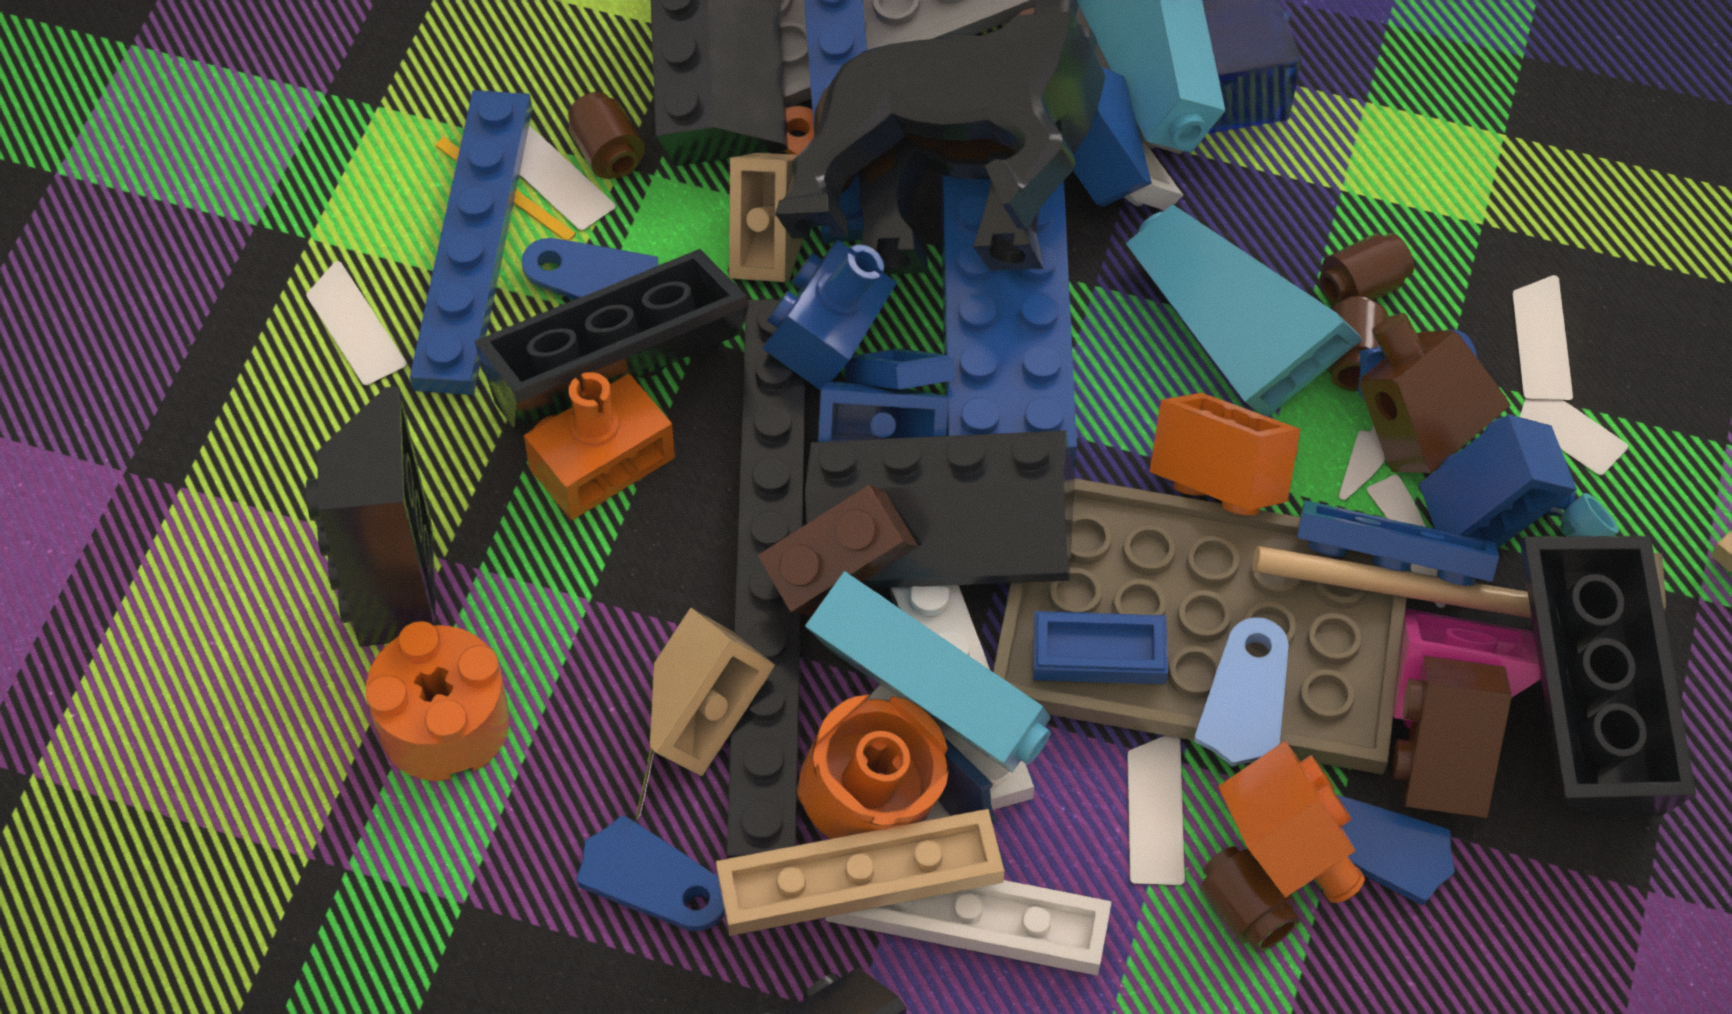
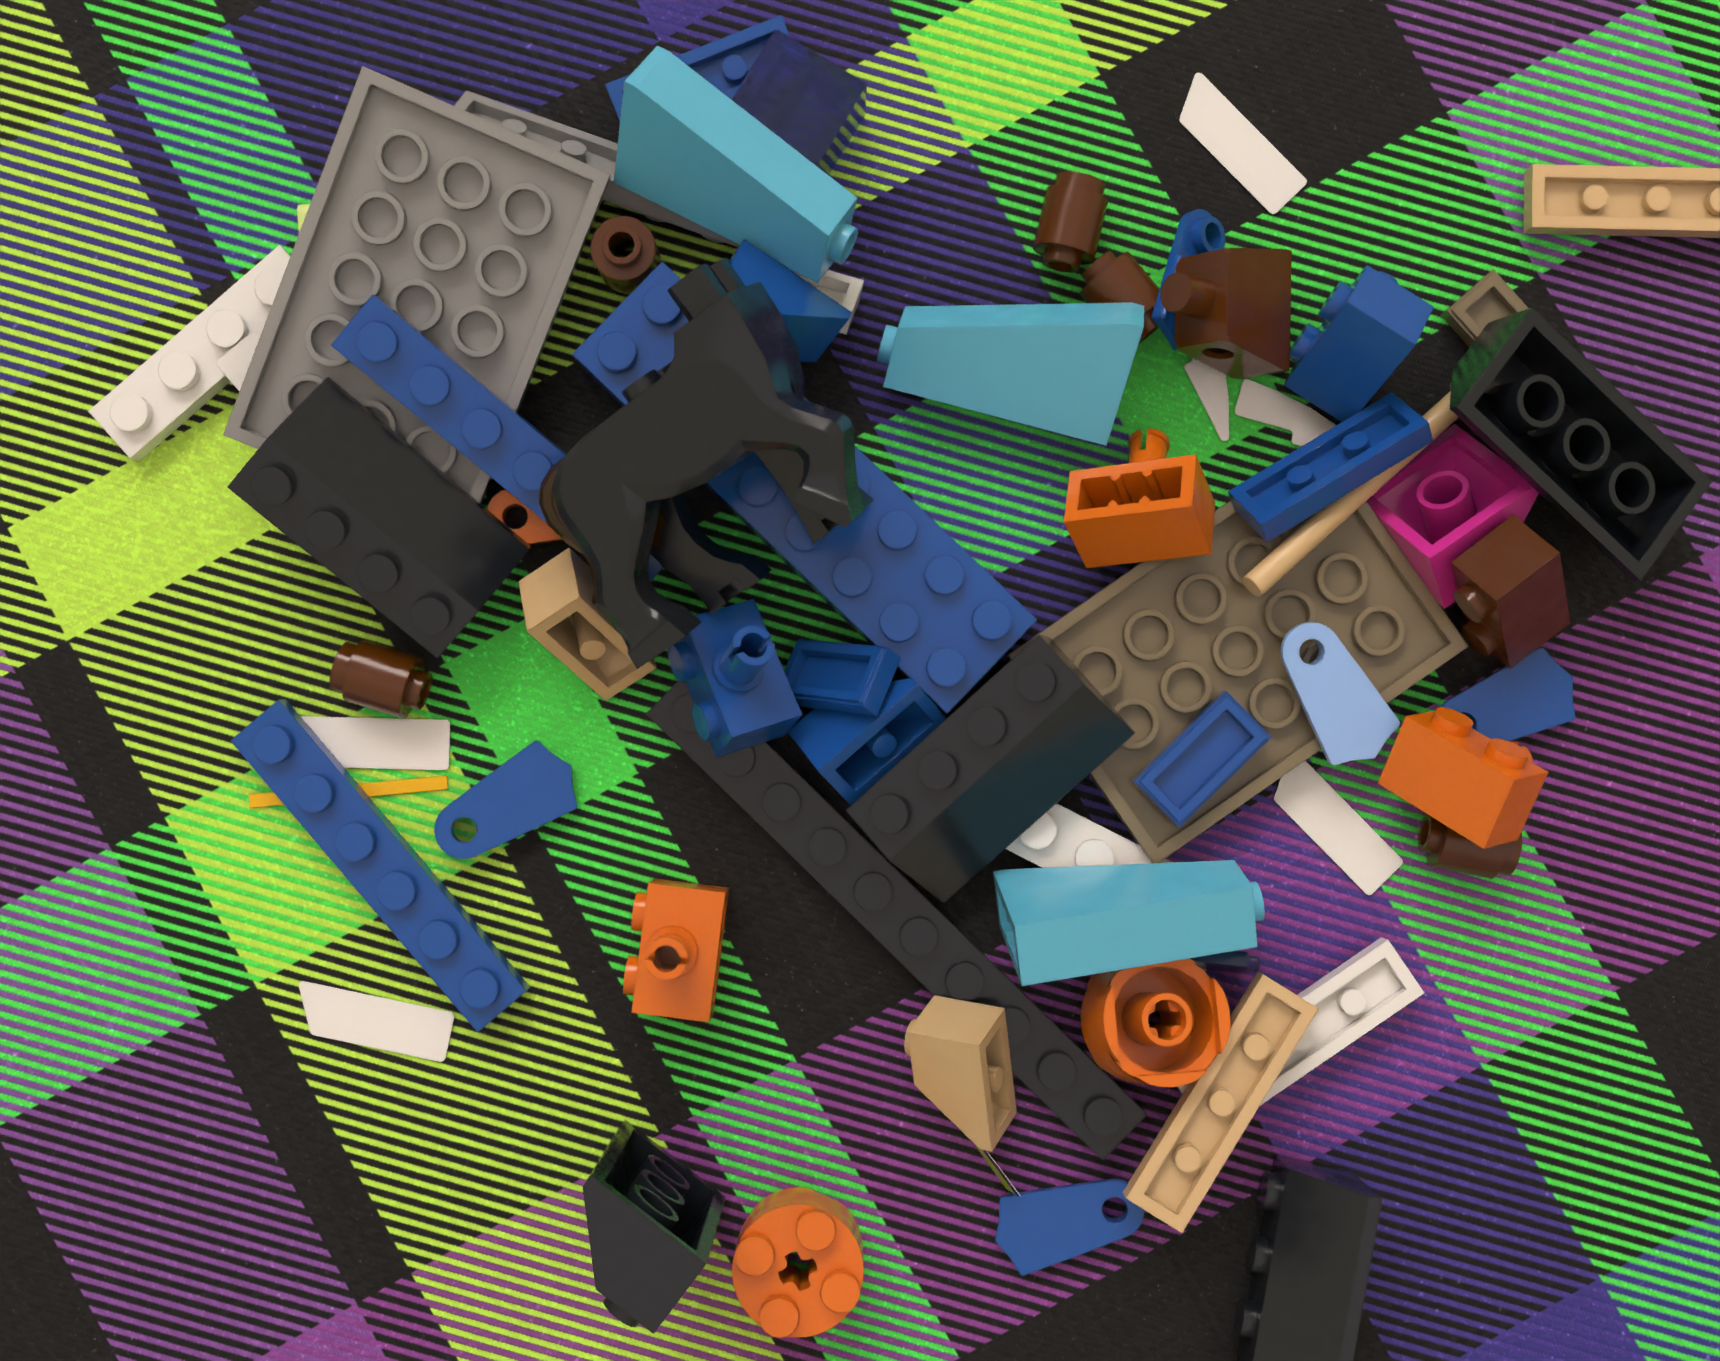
camera: 50 degrees left, 30 degrees up
(612, 332) = (604, 871): black slope -> none
(852, 537) = (969, 890): reddish brown brick -> none
(1577, 433) = (1333, 212): white sticker -> none
(1587, 518) = (1428, 286): medium azure hinge -> none

